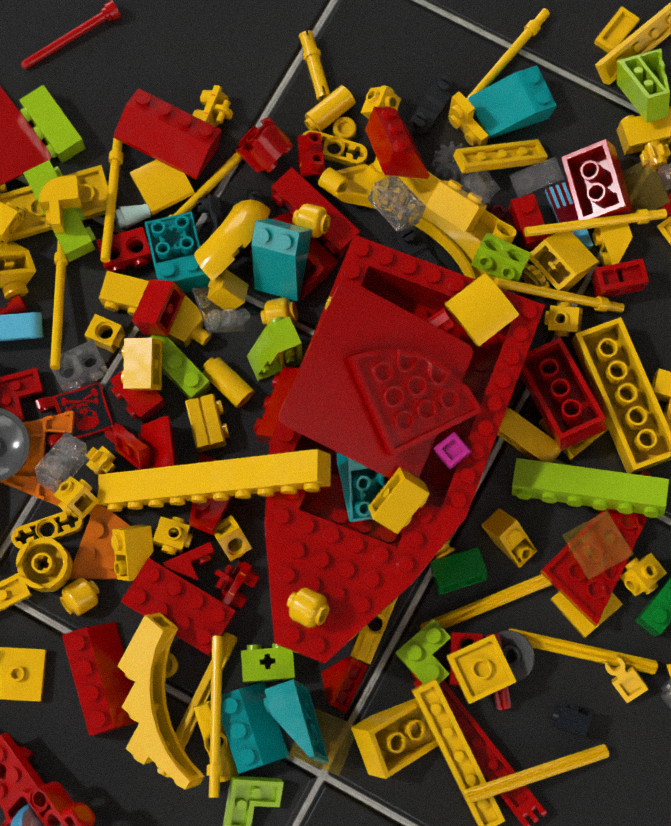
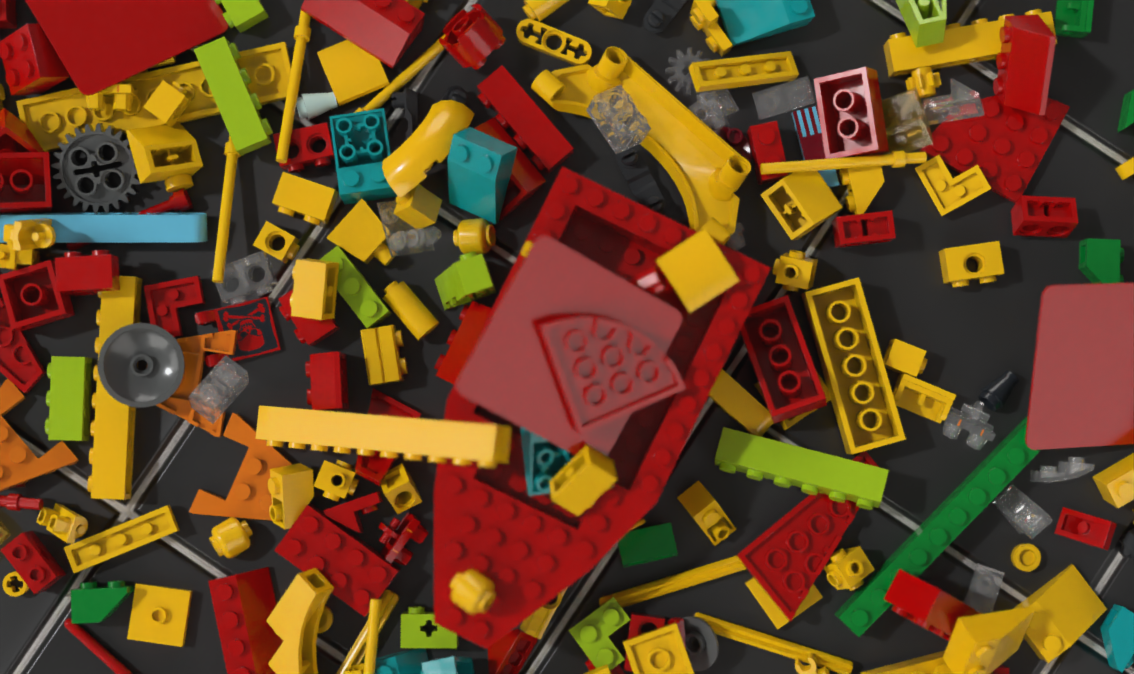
camera: 10 degrees right, 10 degrees up
(27, 528) = (179, 457): yellow beam -> none
(44, 550) = (178, 507): yellow brick -> none
(57, 195) = (233, 82): yellow brick -> none
(76, 497) = (232, 430): yellow brick -> none
(100, 460) = (262, 389): yellow gear -> none
(129, 446) = (294, 377): red hinge -> none
(158, 307) = (337, 223): red brick -> none
(310, 154) = (525, 52): red hips -> none
(313, 218) = (519, 133): yellow head -> none
(344, 128) = (568, 19): yellow tile -> none
(394, 144) = (623, 50): red slope -> none
(452, 450) = (647, 429): dark pink tile -> none
(456, 205) = (686, 129): yellow brick -> none
(501, 258) = (729, 200): lime brick -> none
(533, 276) = (768, 223): yellow gear -> none
(597, 545) = (802, 533): clear yellow slope -> none
(599, 303) = (837, 254): yellow bar -> none

